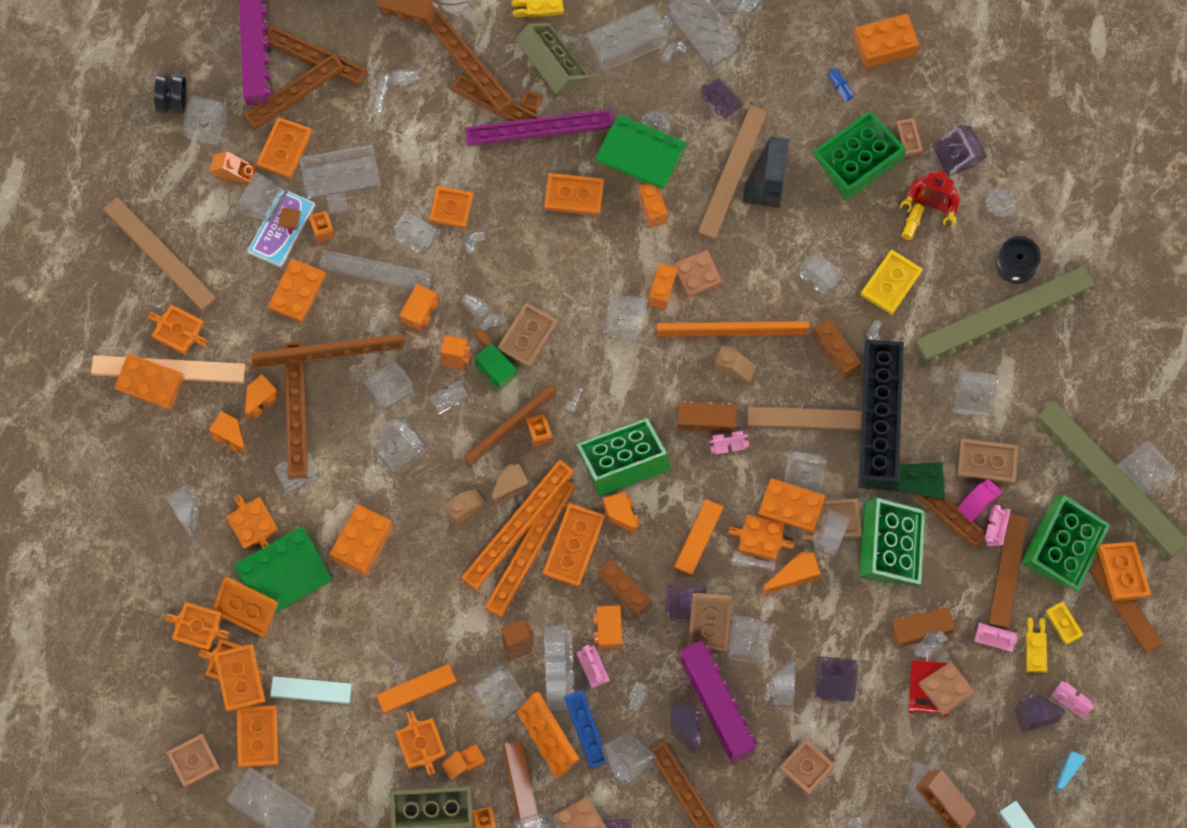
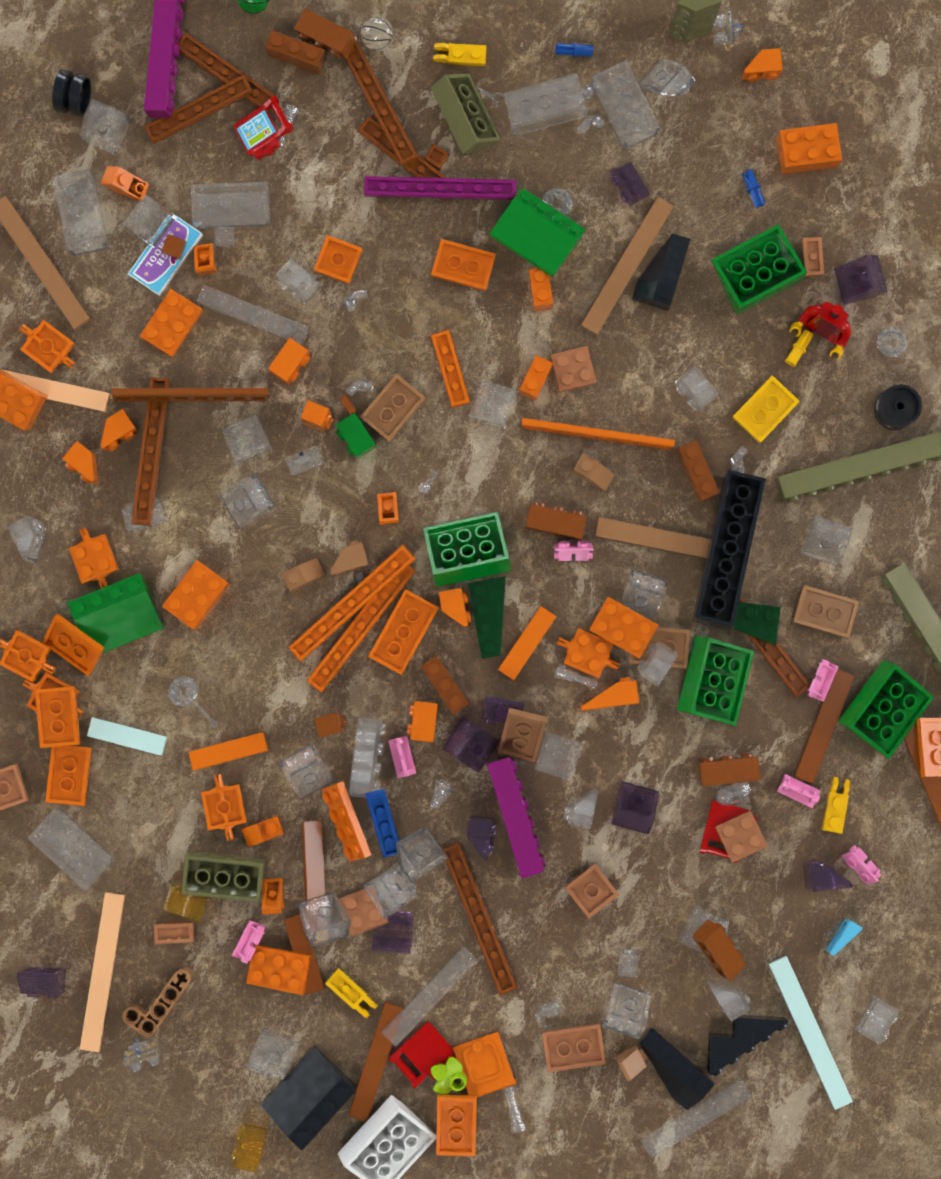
camera: 10 degrees right, 15 degrees up
(194, 200) = (80, 212): none -> clear brick
(284, 148) = (180, 169): orange plate -> none
(356, 103) = (259, 132): none -> piece
(365, 628) = (175, 691): none -> clear gear
(380, 27) = (295, 52): none -> dark orange brick
(402, 77) = (312, 110): clear cone -> none
(476, 306) = (346, 368): clear cone -> none
(510, 425) = (360, 499): dark orange tile -> none
(577, 292) = (450, 369): none -> orange tile
(604, 797) = (390, 890): none -> clear slope
(654, 512) = (488, 608): none -> dark green wing
(660, 642) = (471, 744): none -> clear purple slope
(979, 500) = (810, 651): dark pink brick -> none
(1064, 623) = (868, 788): yellow plate -> none

